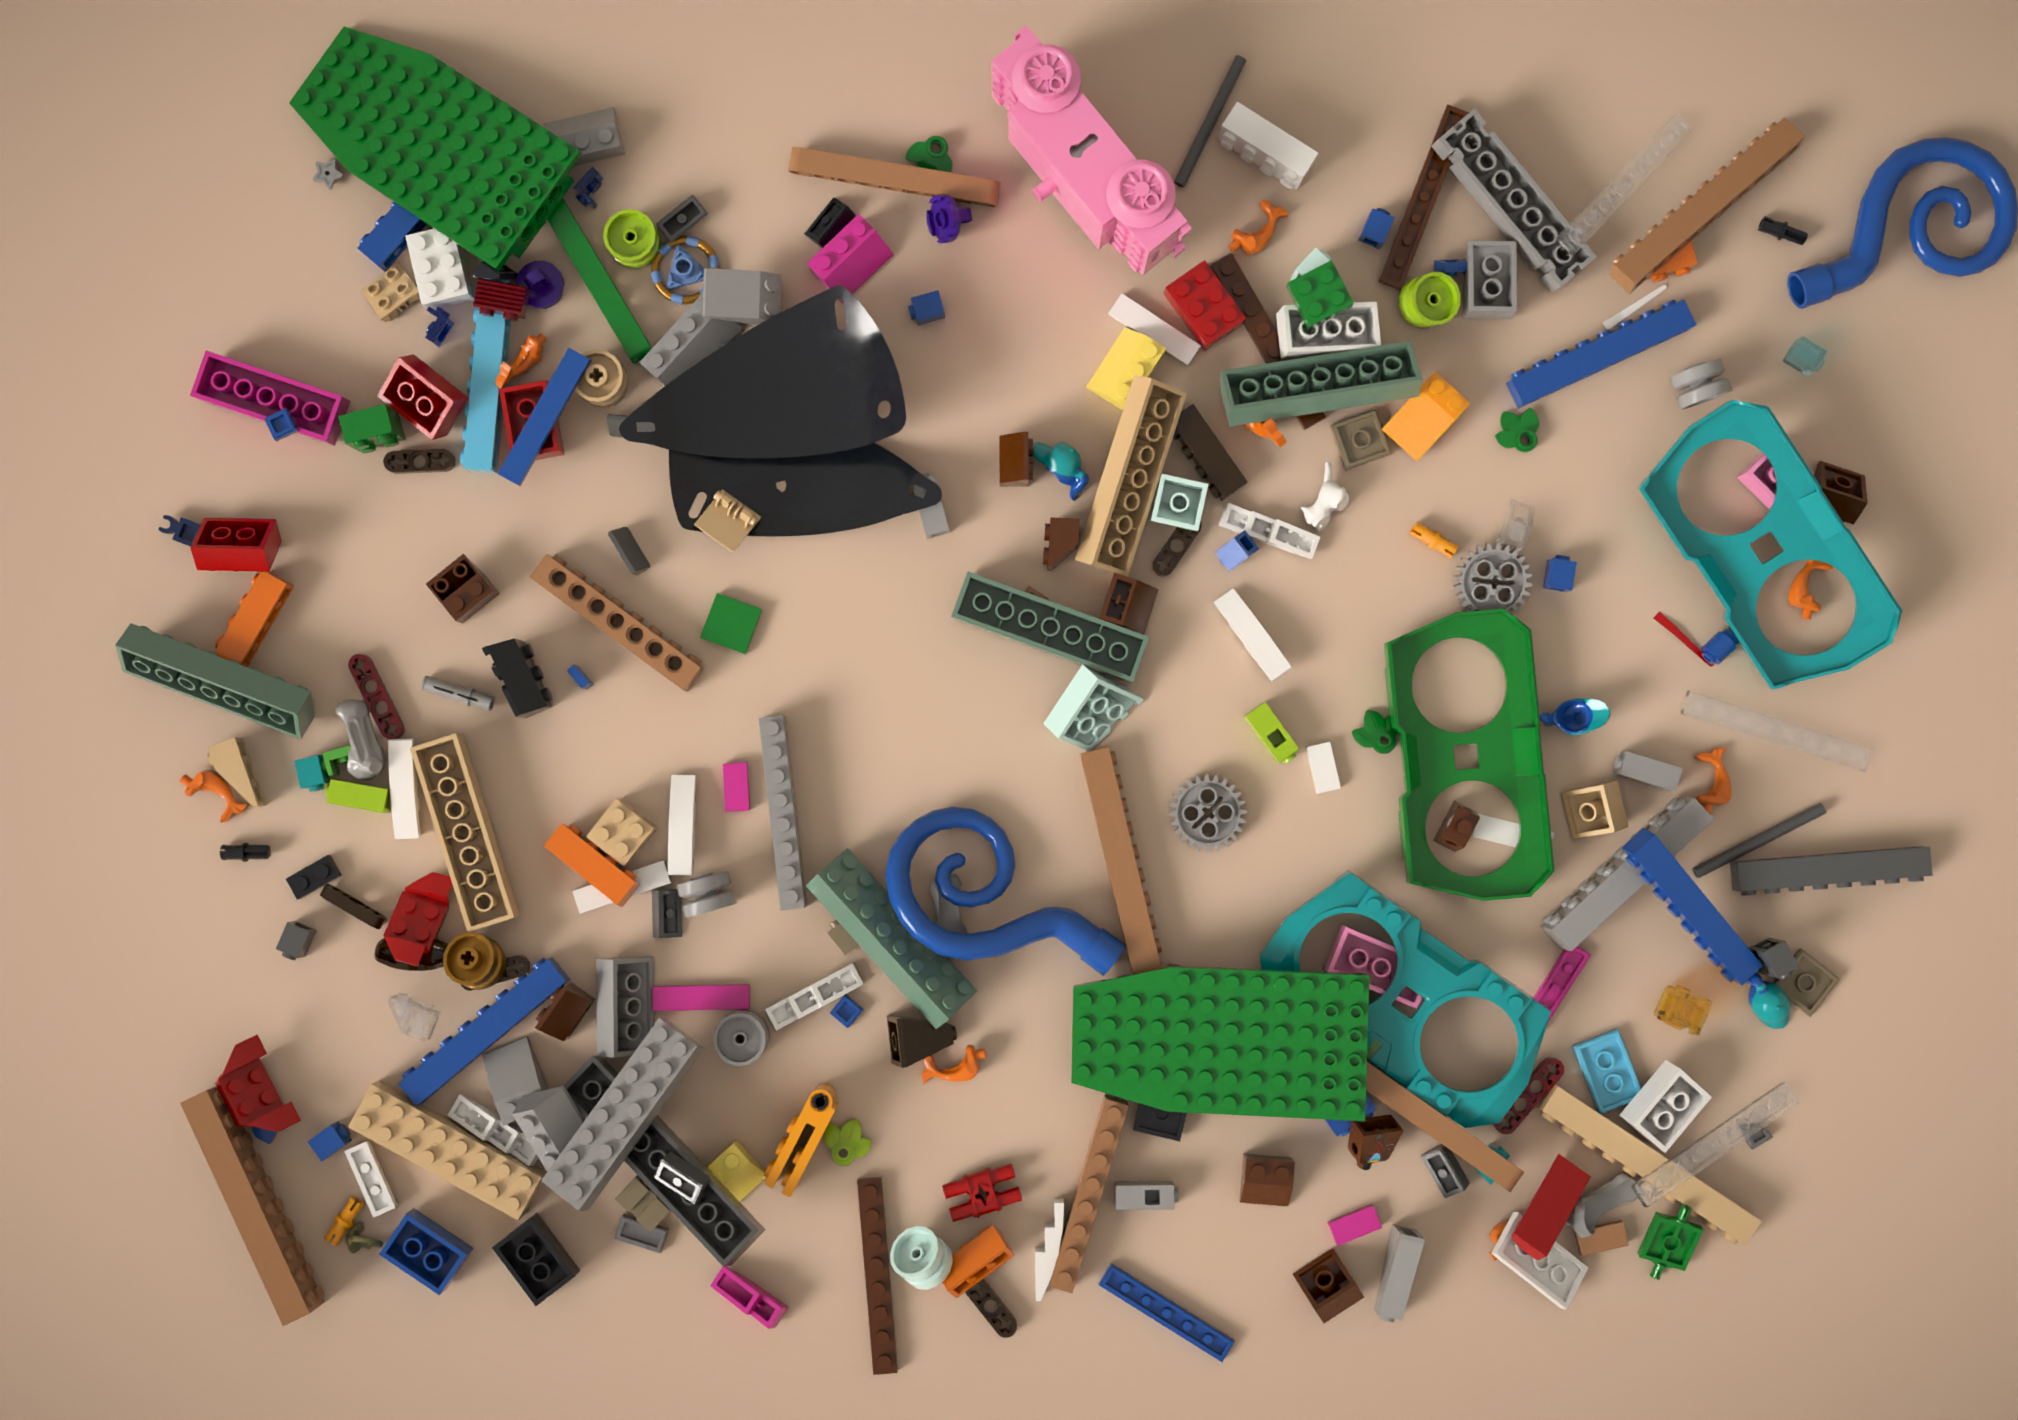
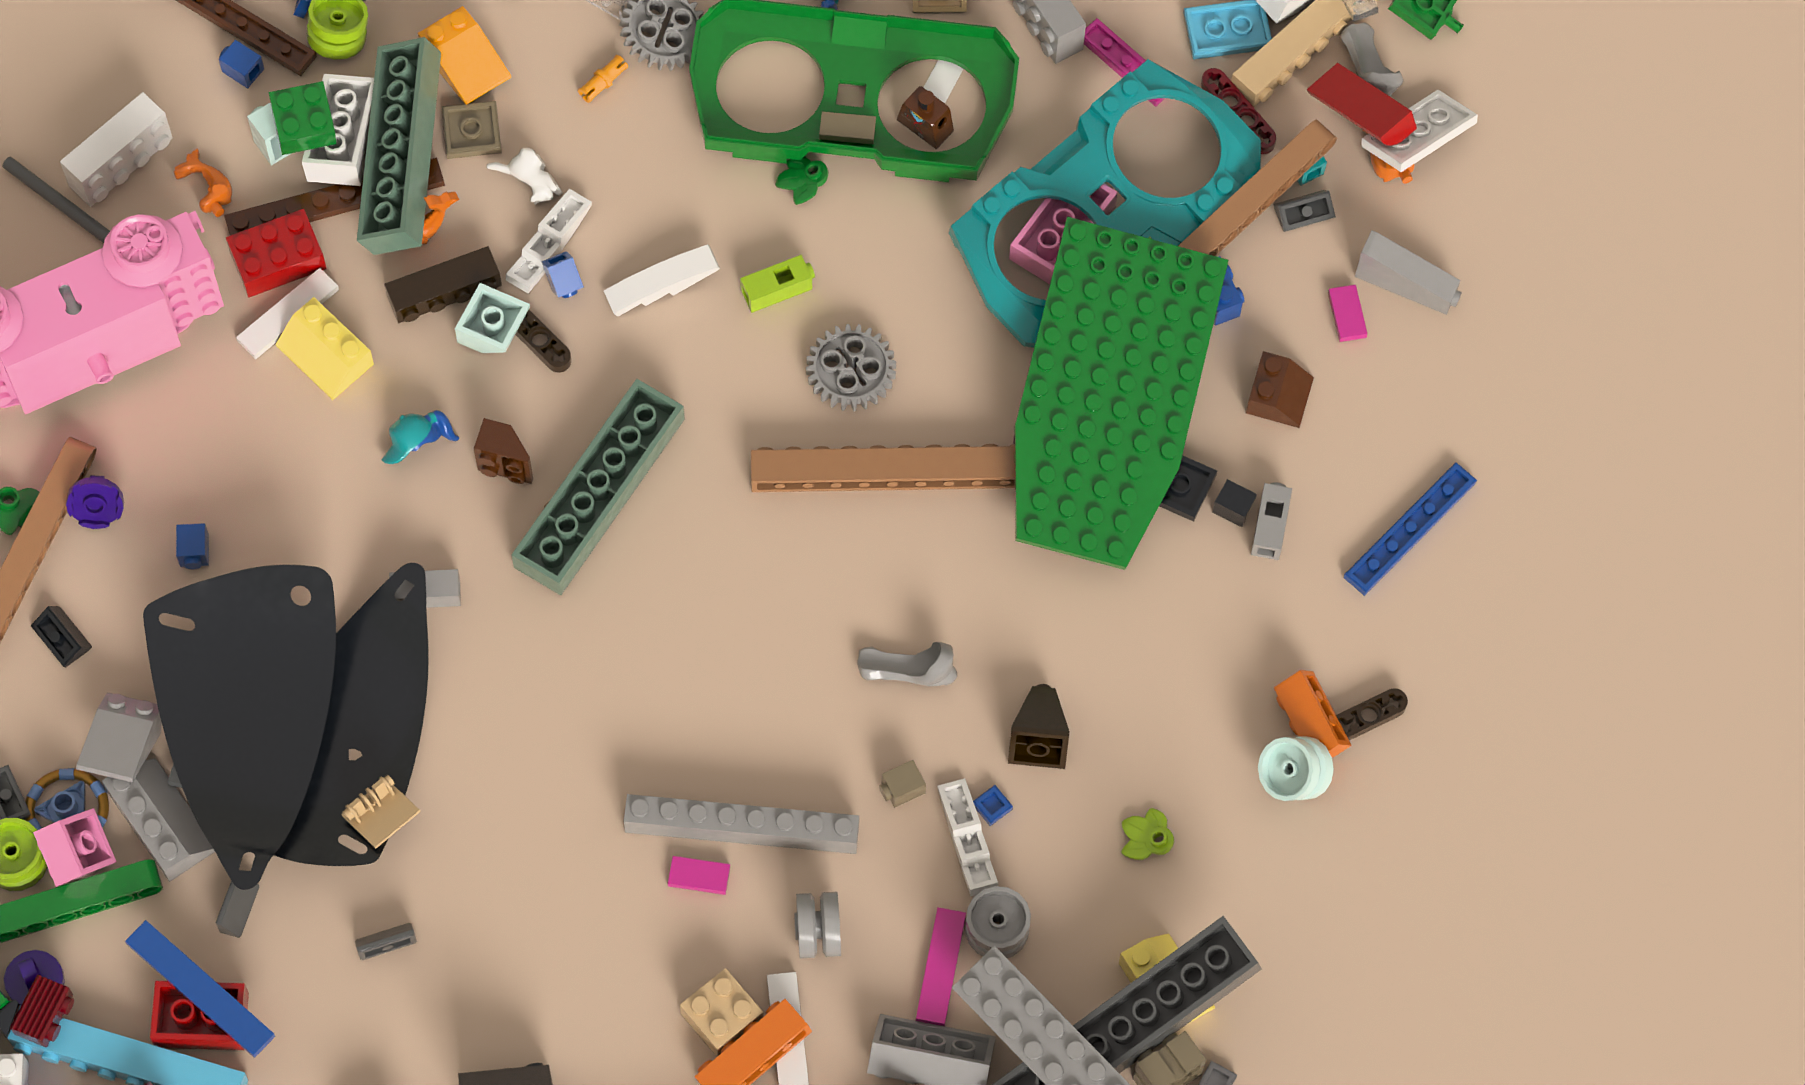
camera: 80 degrees left, 20 degrees down
(526, 359) = (117, 1009): orange animal -> none
(546, 574) = (394, 1041): medium nougat brick -> none
(580, 677) = (523, 1025): blue tile -> none
(610, 387) = (176, 912): tan wheel -> none
(641, 286) = (74, 847): none -> bright pink brick
(666, 913) = (831, 987): dark grey slope -> none
(681, 825) = (729, 942): white slope -> none
(682, 1177) = (1146, 998): dark grey slope -> none
(731, 623) = (503, 841): green tile -> none
(749, 1297) = (1308, 981): dark pink slope -> none
(815, 1113) = (1132, 874): light orange hinge -> none
(850, 256) = (108, 617): dark pink slope -> none
(869, 918) = (916, 727): sand green brick -> none
(877, 1276) = (1310, 833): reddish brown plate -> none
(964, 1072) = (1090, 684): orange animal -> none
(970, 1185) = (1224, 703): red pin -> none
(1014, 460) = (395, 482): reddish brown slope -> none
(1046, 1256) = (1325, 640): white slope -> none
(1088, 1193) = (1258, 579): medium nougat brick -> none
(1090, 708) = (701, 464): light aqua wedge -> none
(1092, 944) = (972, 515): blue animal -> none
(1128, 603) = (588, 400): reddish brown slope -> none
(1131, 475) = (449, 360): tan brick -> none
(1154, 1161) = (1234, 503): none -> black panel
(1323, 767) = (828, 241): white tile -> none
(1328, 1285) = (1409, 350): reddish brown slope -> none
(1373, 1139) = (1254, 268): reddish brown torso -> none
(1430, 761) = (847, 128): none -> dark tan tile
(1605, 1238) = (1409, 63): medium nougat tile -> none

